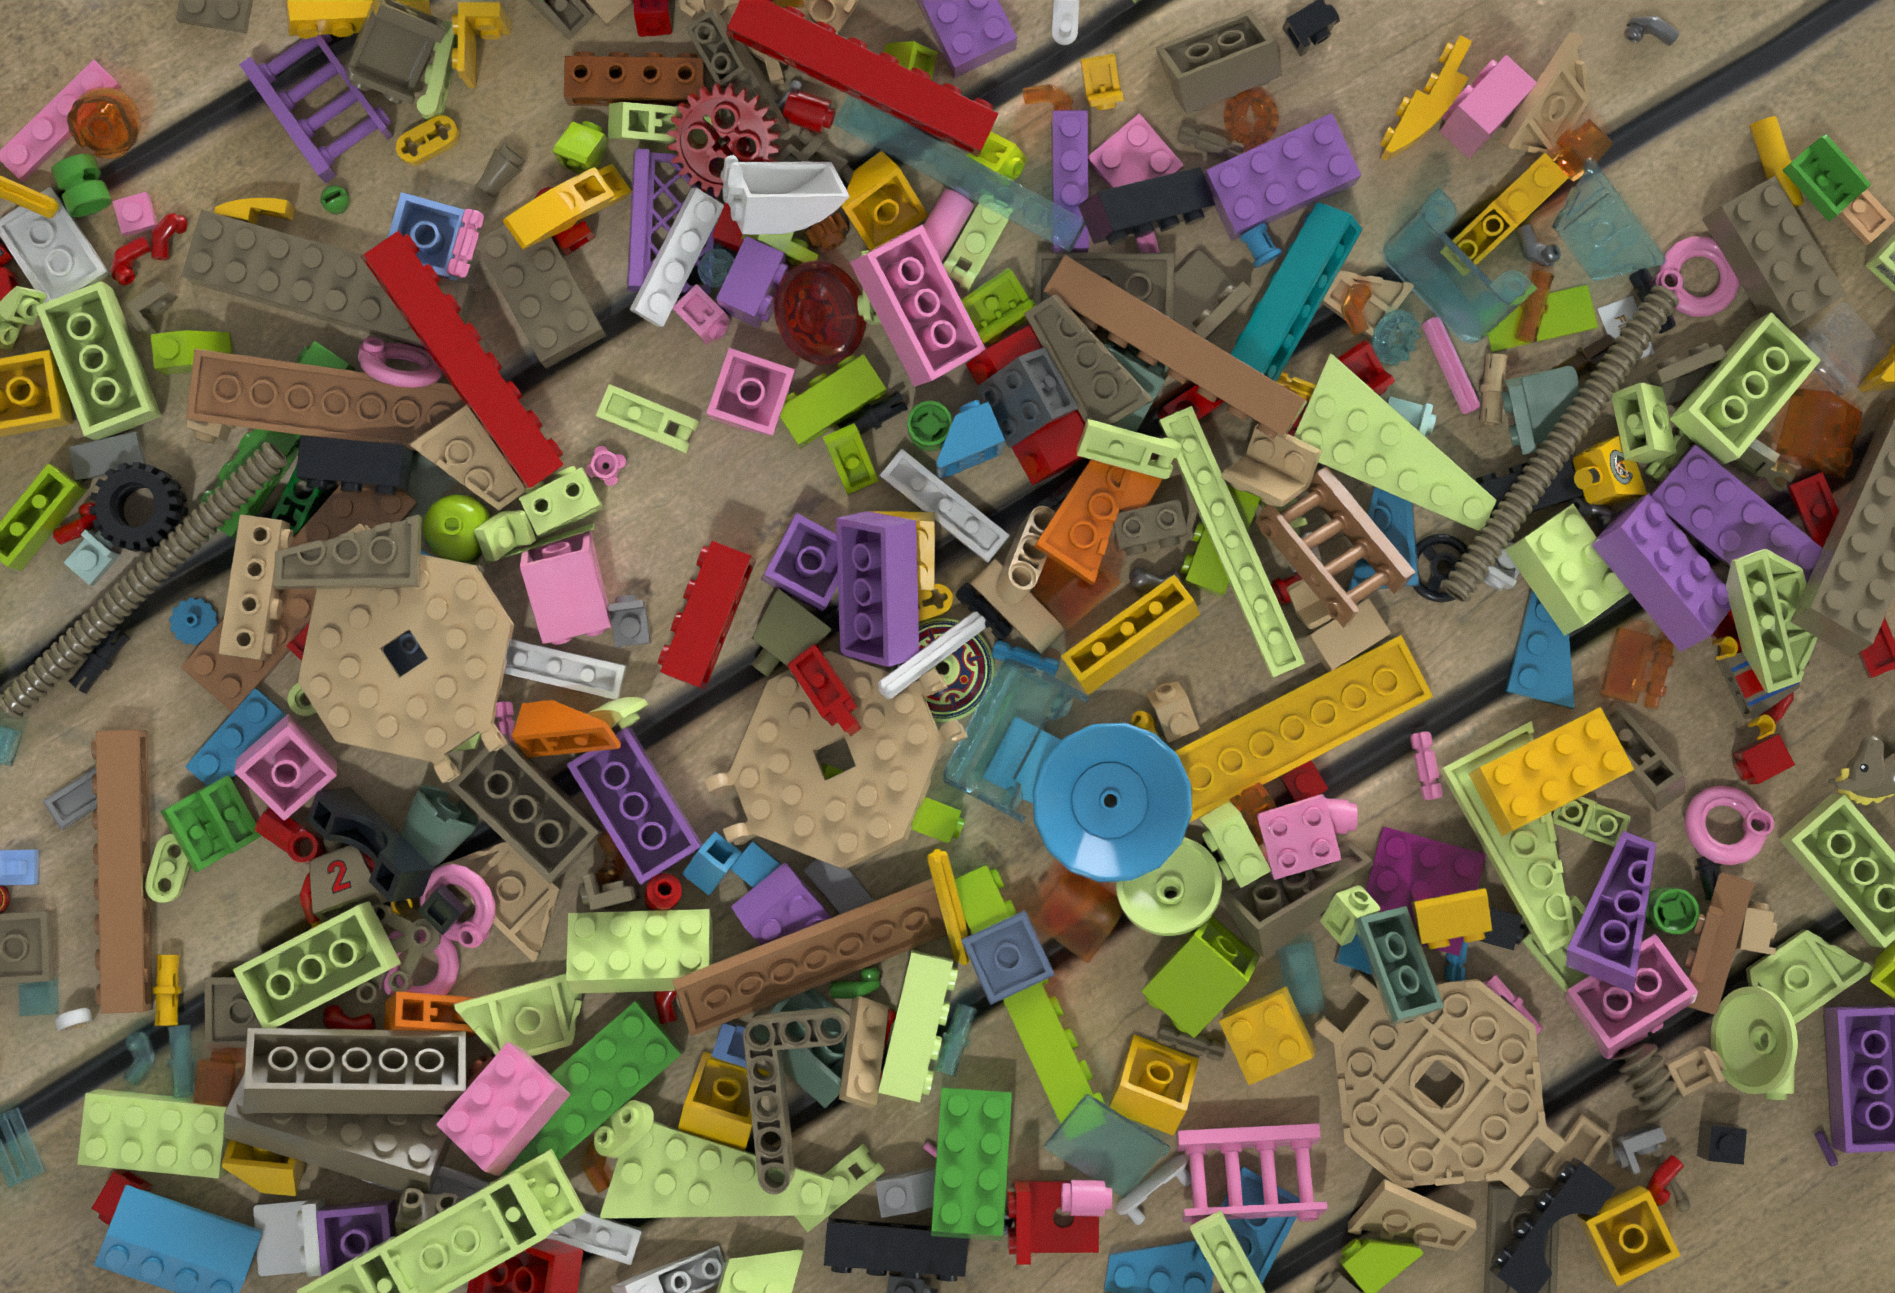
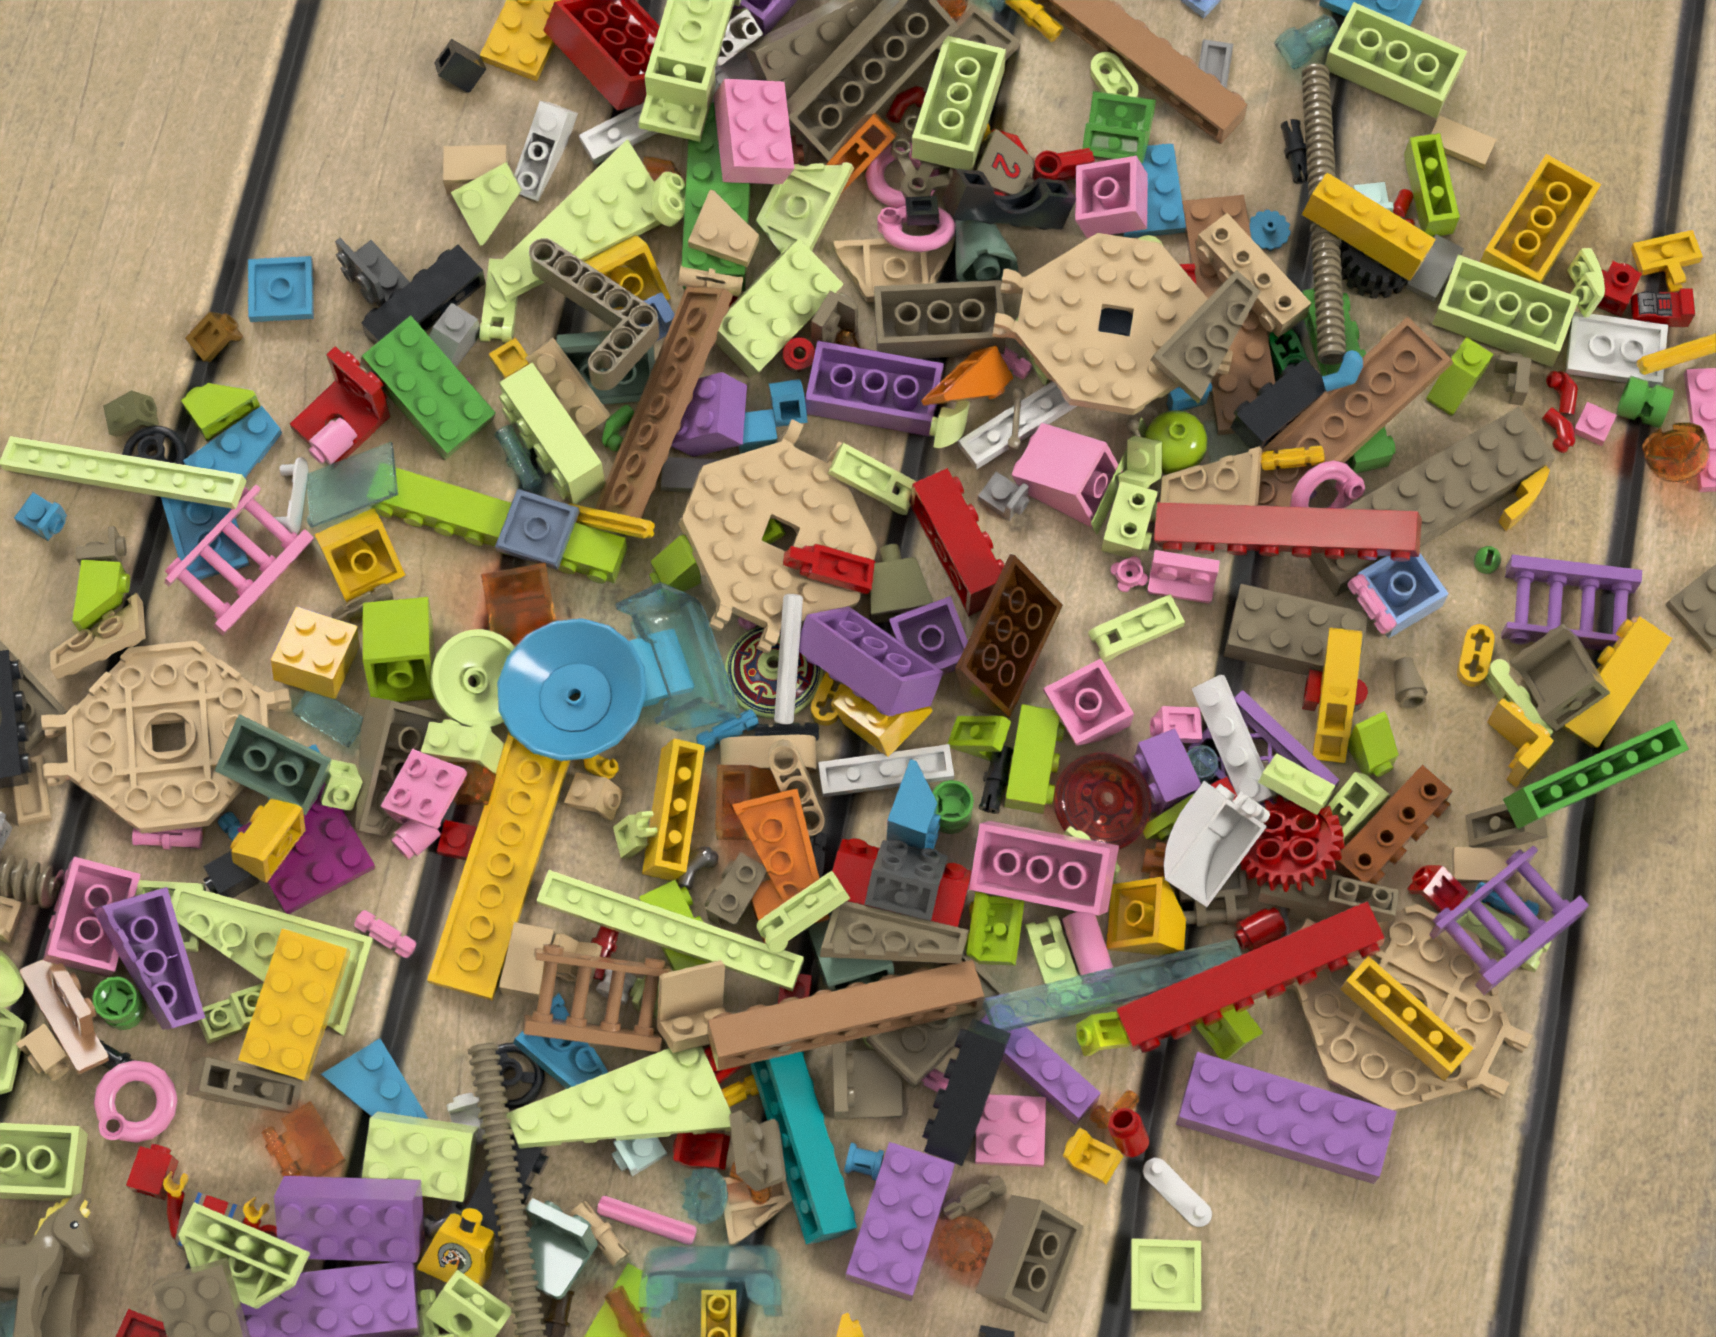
camera: 135 degrees right, 15 degrees down
(129, 521) = (1368, 226): none -> yellow brick
(281, 426) = (1347, 374): none -> dark azure arm
(393, 412) = (1292, 458): none -> yellow axle
(573, 417) = (1183, 576): none -> bright pink bracket
(579, 651) = (1014, 442): none -> dark tan hinge
(616, 1050) = (723, 232): none -> tan wing
(654, 1003) = (691, 277): none -> tan pin
(672, 172) = (1297, 784): none -> yellowish green bracket
(714, 736) = (872, 478): none -> yellowish green plate
(757, 495) = (1007, 640): none -> reddish brown slope
(879, 1127) = (509, 358): none -> yellow plate
(1060, 78) = (1128, 1132): none -> red brick
(1176, 648) = (633, 832): none -> yellowish green plate
(1336, 318) = (757, 1151): none -> dark tan bracket

